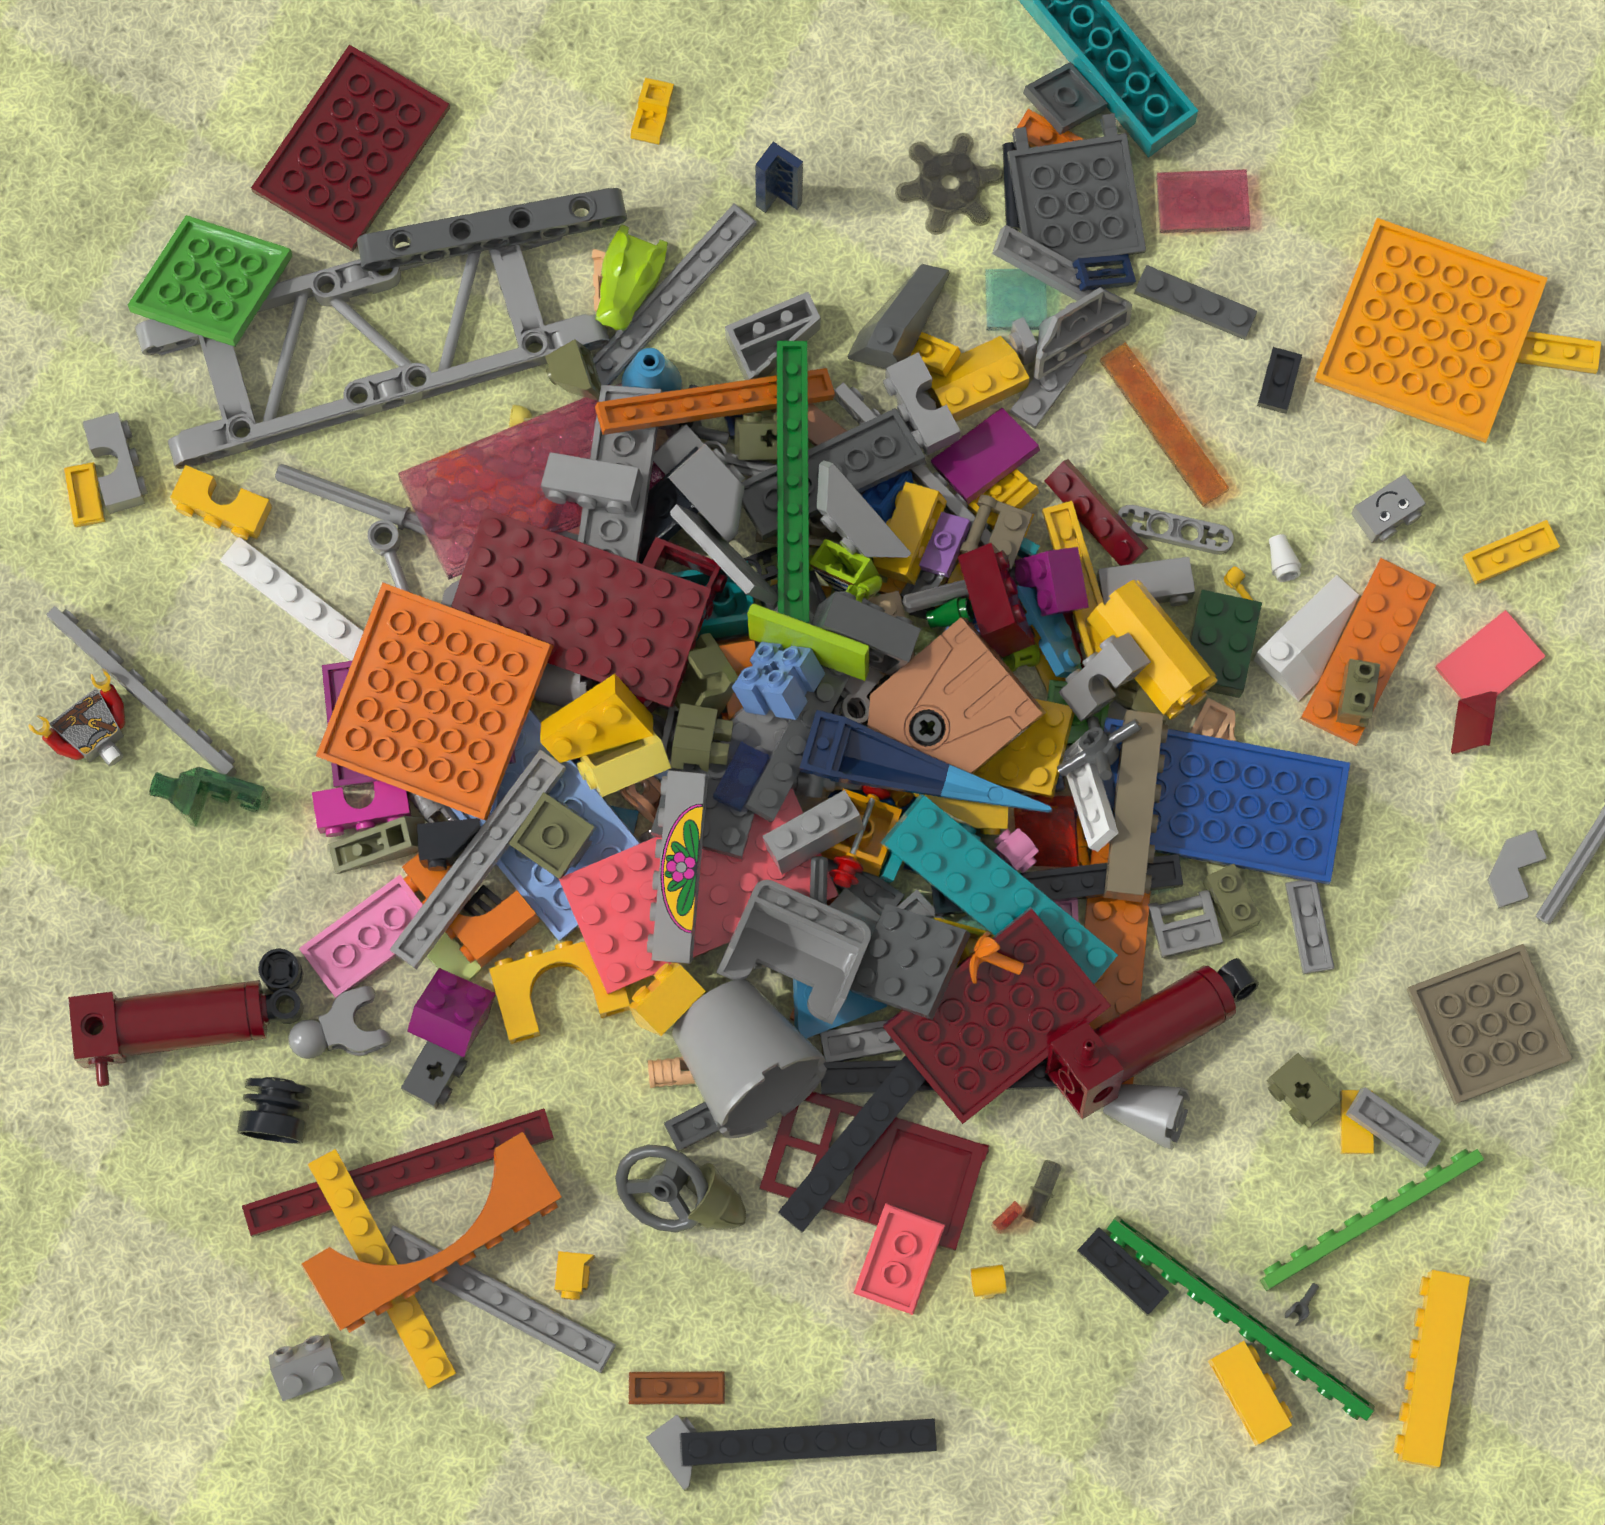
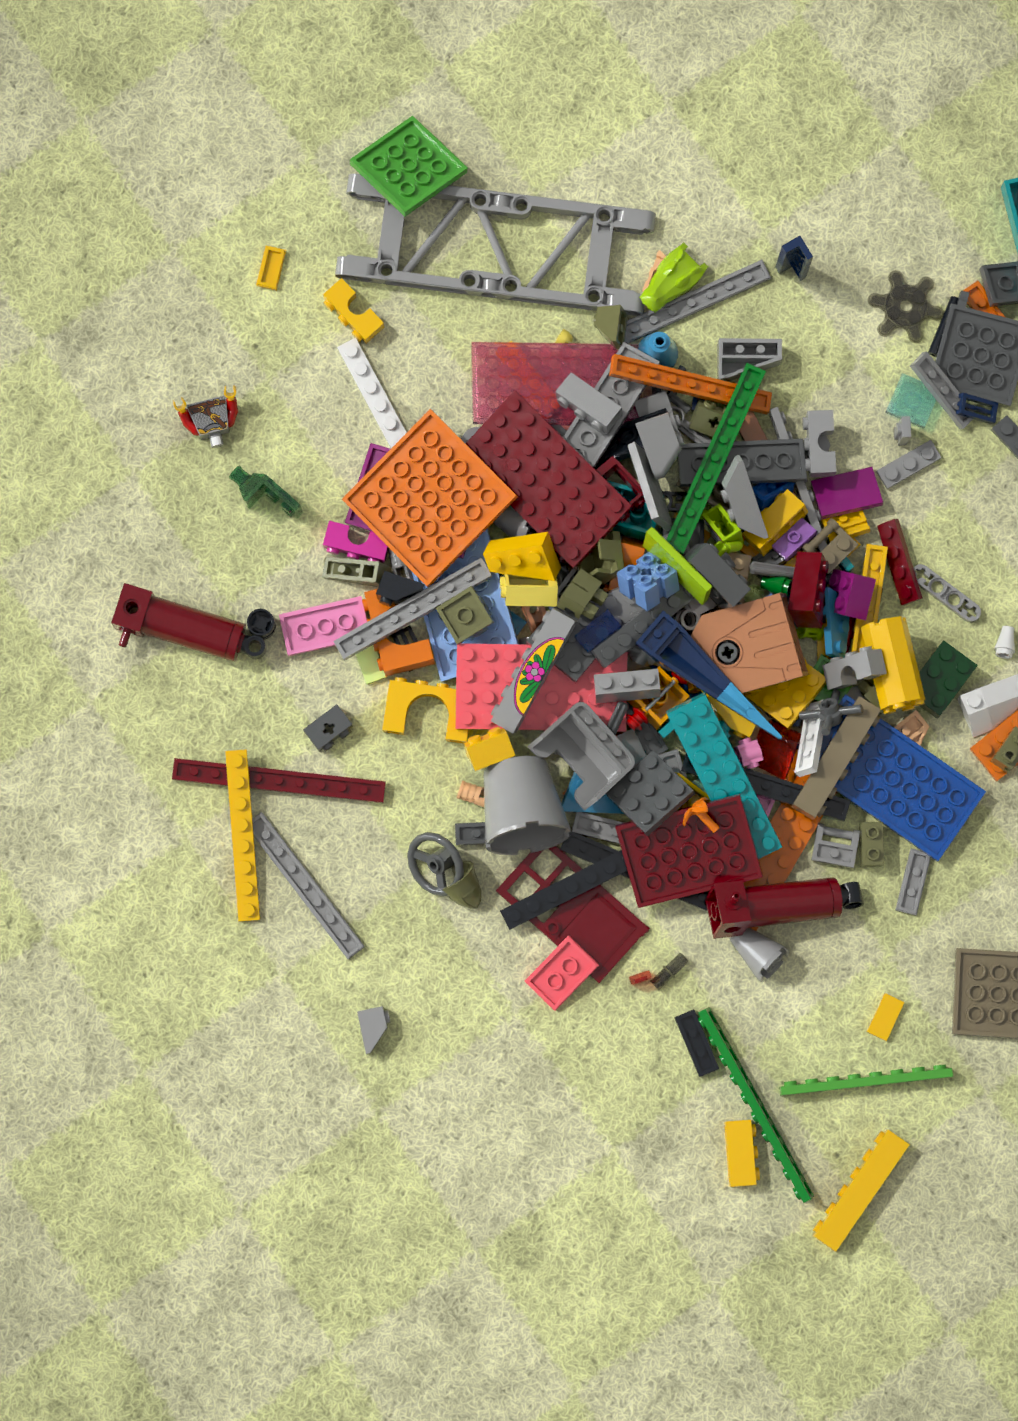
camera: 25 degrees right, 5 degrees up
(109, 437) = (297, 274): light grey arch -> none
(133, 682) = (257, 418): light grey plate -> none
(274, 1110) = (219, 708): black wheel -> none
(304, 1367) = (169, 874): light grey bracket -> none
(338, 1029) = (280, 675): light grey piece -> none
(350, 147) = (535, 117): dark red plate -> none
(358, 1288) = (221, 842): orange arch -> none
(388, 550) = (444, 389): light grey piece -> none
(397, 515) = (435, 343): light grey axle -> none
(451, 1012) = (354, 696): magenta brick -> none
(491, 229) = (599, 211): dark grey beam -> none
(572, 1274) = (357, 891): yellow window -> none
(652, 111) = (737, 176): yellow slope -> none
(677, 1387) = (390, 989): dark orange tile -> none
(807, 1442) = (454, 1059): black plate -> none
(899, 322) = (831, 383): dark grey wedge -> none
(936, 353) = (843, 411): yellow plate -> none
(979, 379) = (864, 441): yellow slope -> none
(988, 1281) = (609, 1011): yellow piece -> none
(1079, 329) = (943, 438): light grey wedge -> none
(1164, 424) = (970, 523): clear orange plate -> none
(1165, 579) = (920, 622): light grey brick -> none
(1233, 579) = (968, 641): yellow hand -> none
(1300, 1074) = (868, 991): olive brick -> none
(1301, 1307) = (797, 1114): dark grey hand -> none
(1393, 1127) = (906, 1030): light grey plate -> none

